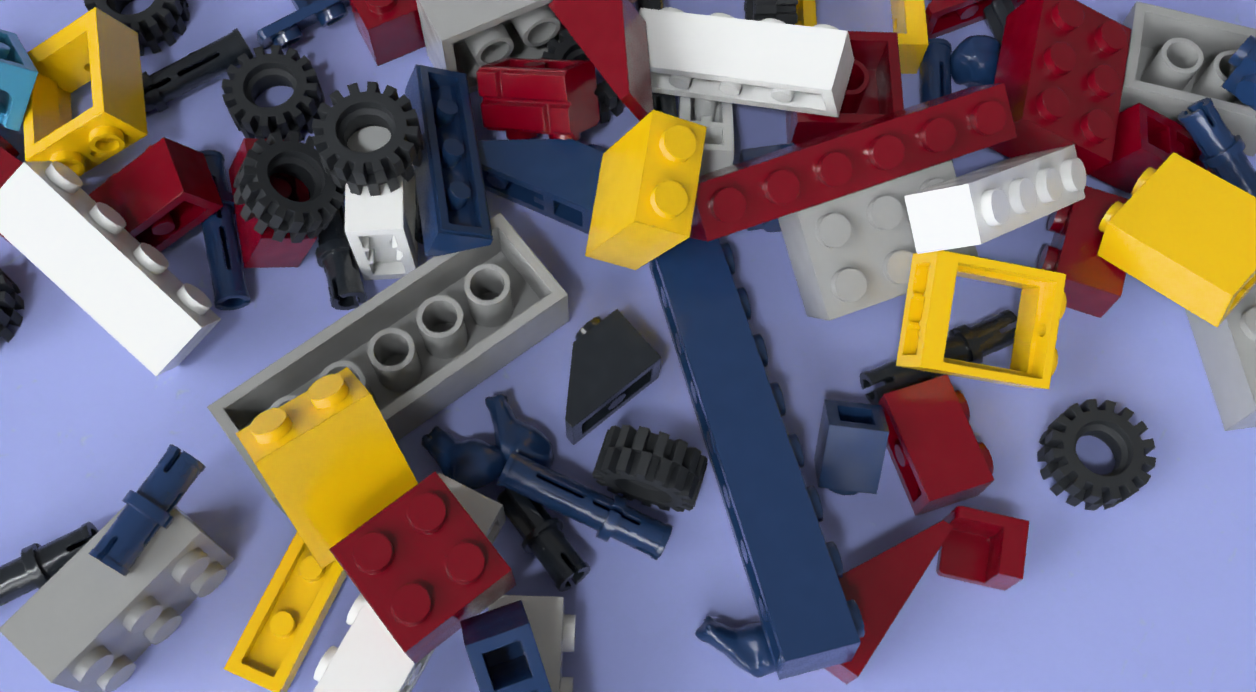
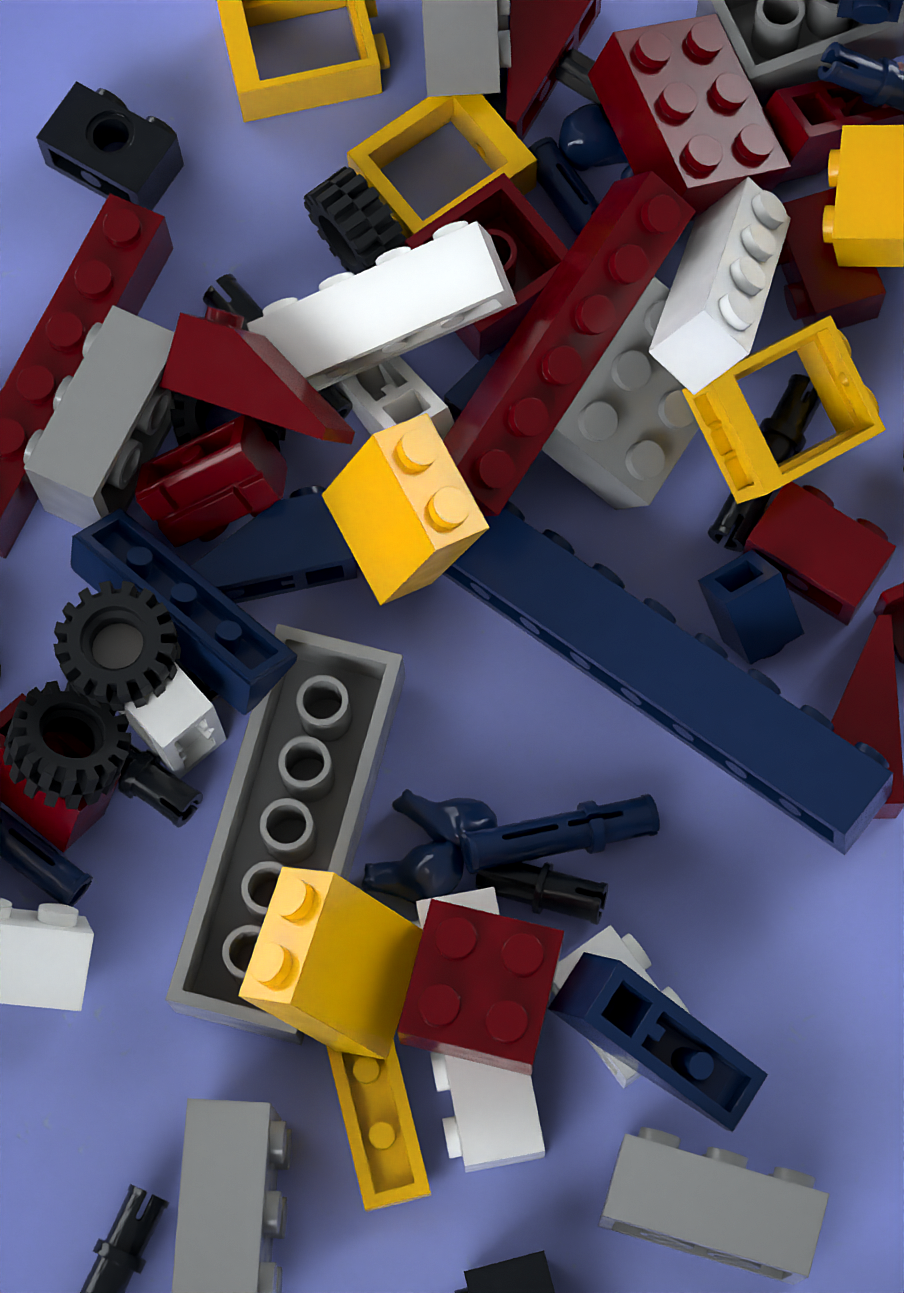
camera: 30 degrees left, 5 degrees up
(147, 510) = (215, 1117): dark blue pin -> none
(606, 372) = (480, 698): black slope -> none
(650, 468) = (595, 757): black tyre -> none
(742, 645) = (790, 850): dark blue animal -> none

